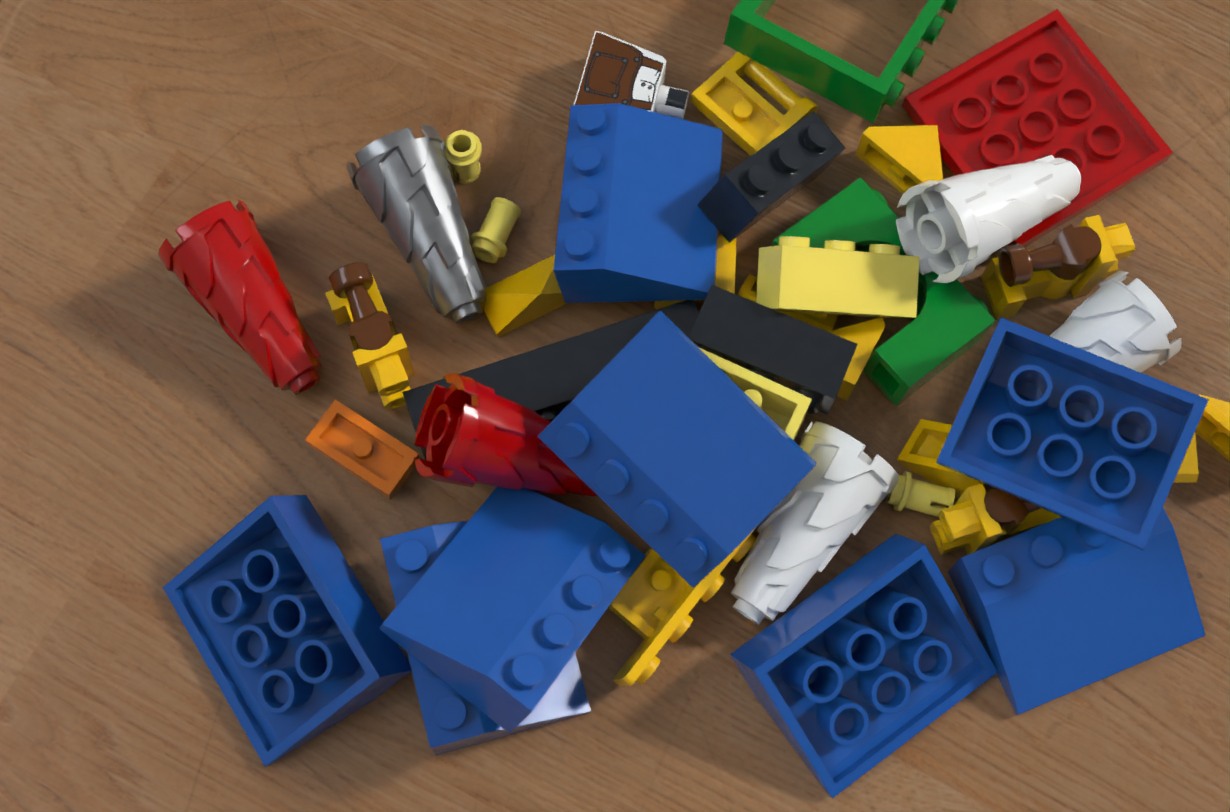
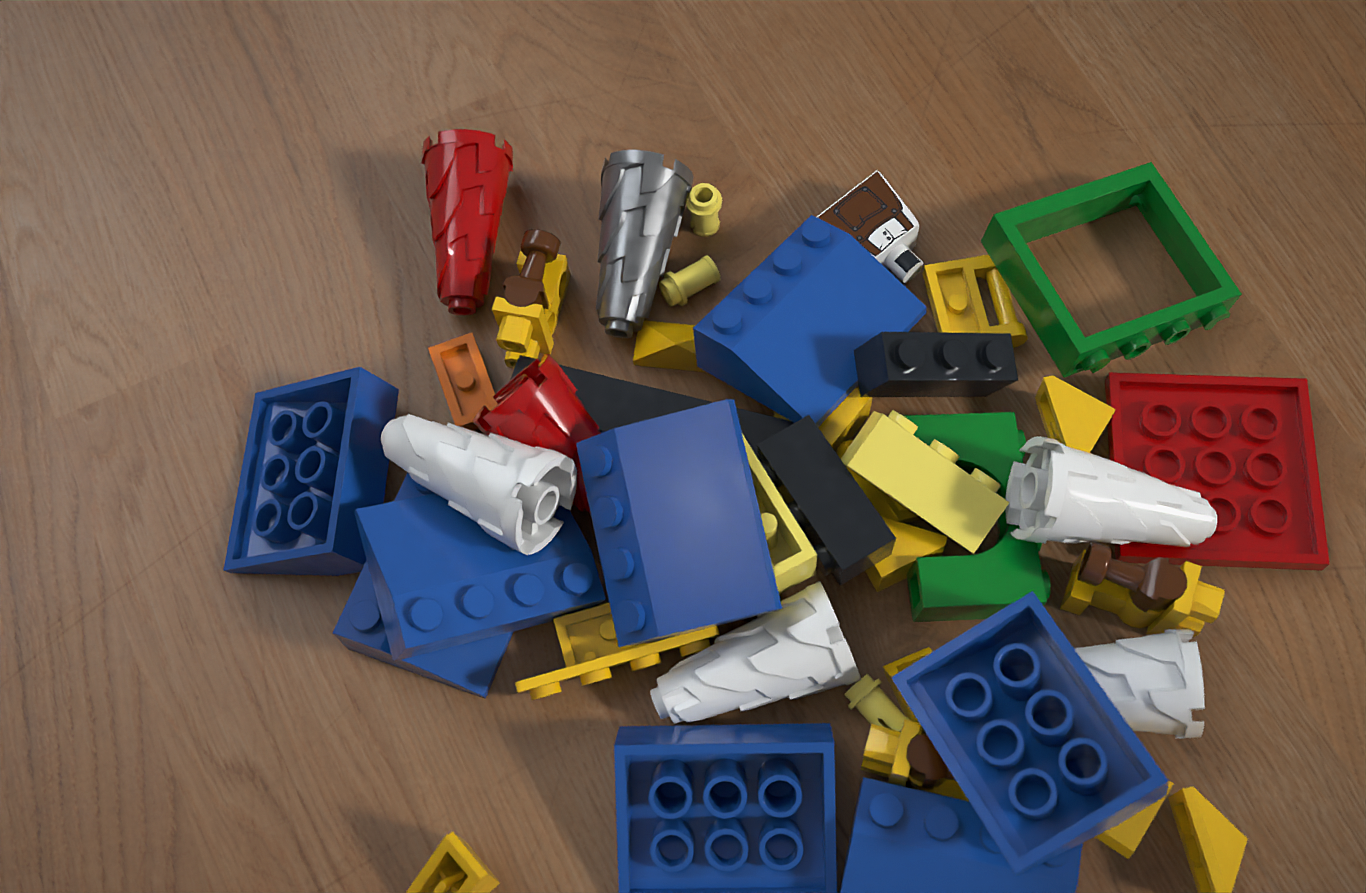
camera: 45 degrees right, 5 degrees down
(478, 519) = (488, 478): none -> white cone

